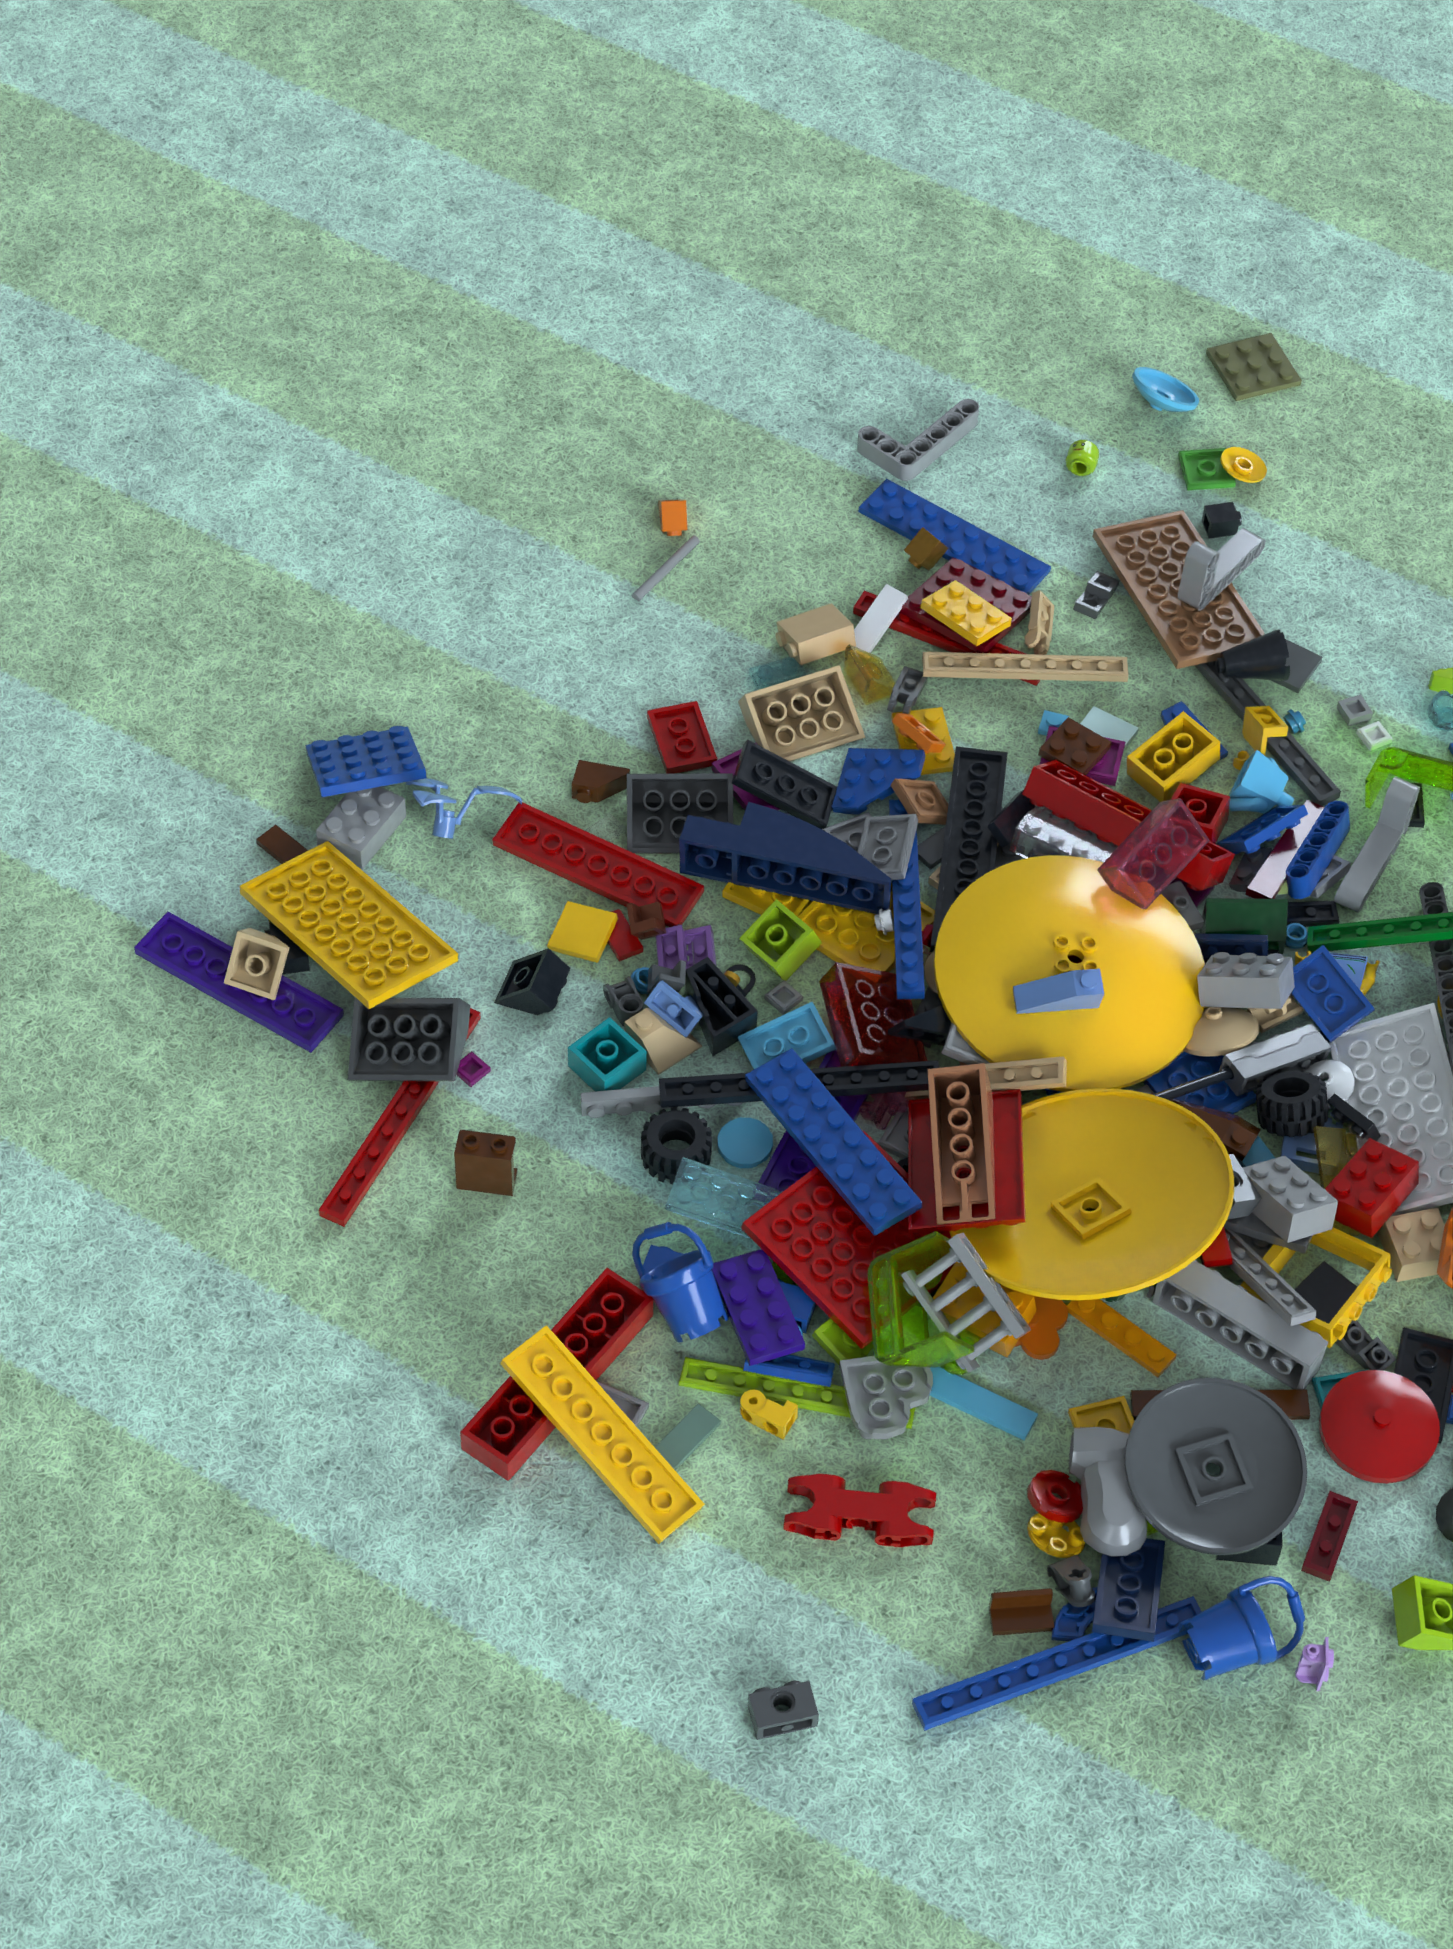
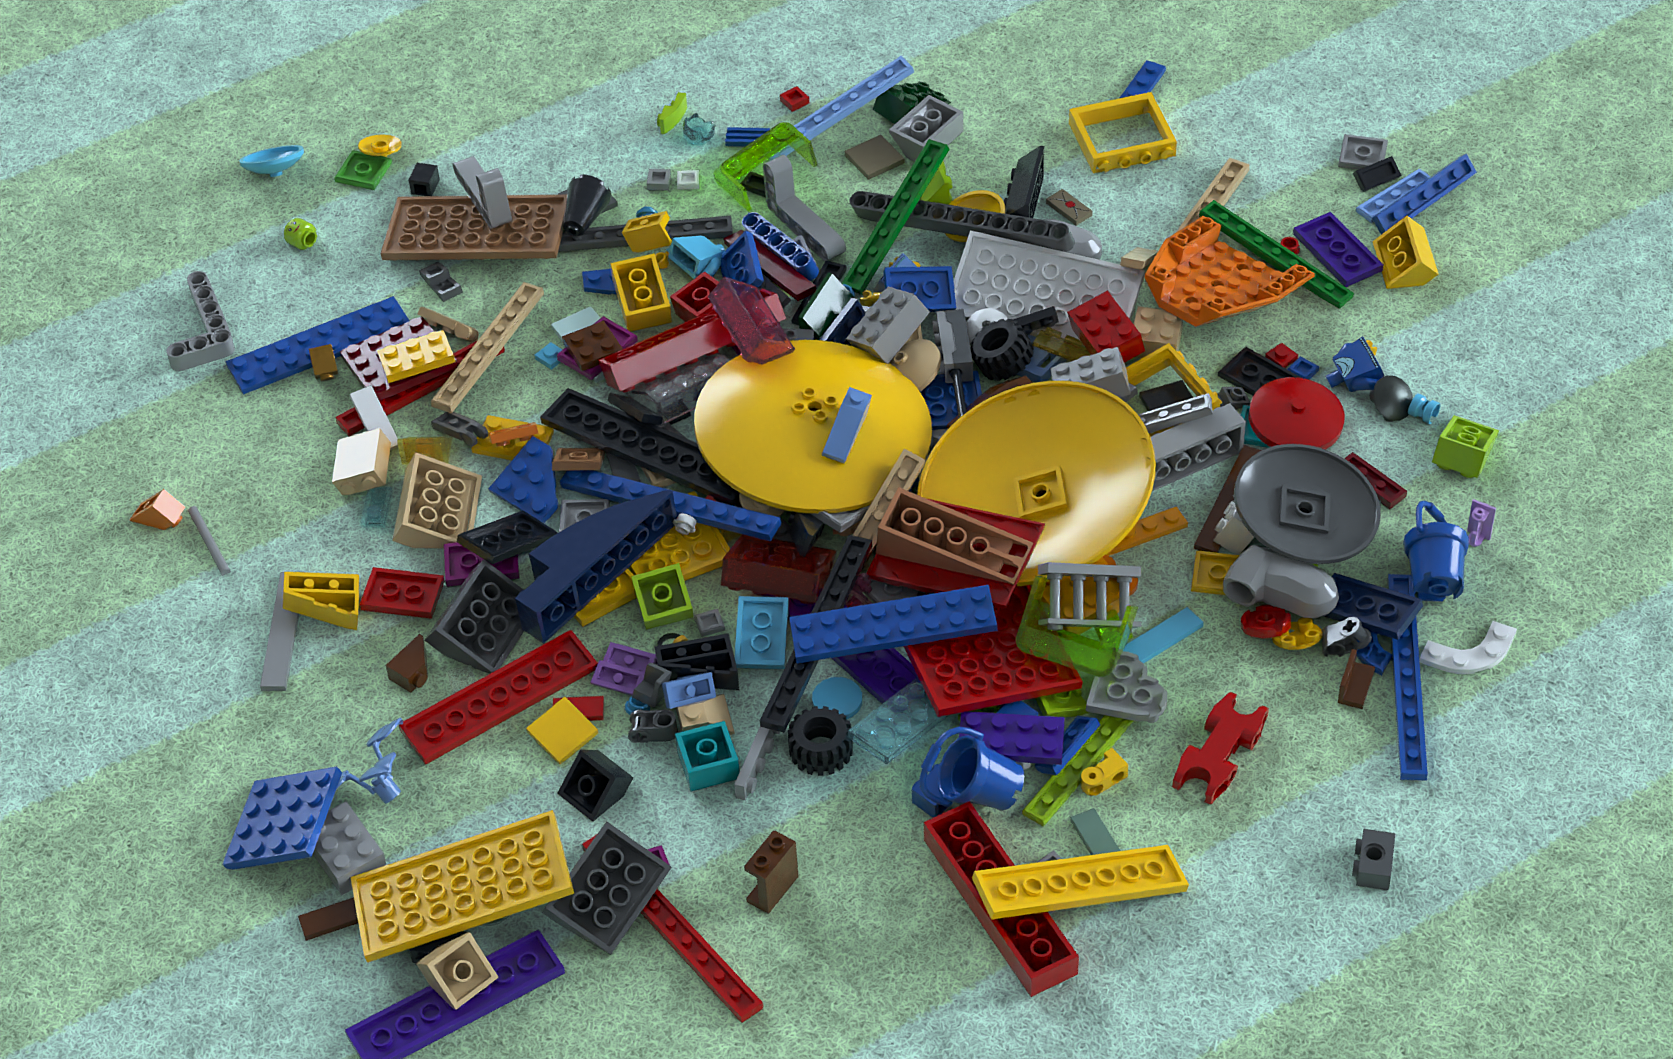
camera: 60 degrees left, 5 degrees down
(590, 670) = (279, 645): none -> light grey tile
(635, 678) = (323, 597): none -> yellow wedge
(646, 920) = (582, 679): copper panel -> none
(889, 842) = (607, 488): light grey tile -> none
(1126, 1730) = (1469, 661): none -> white plate
(1253, 366) = (282, 103): olive plate -> none

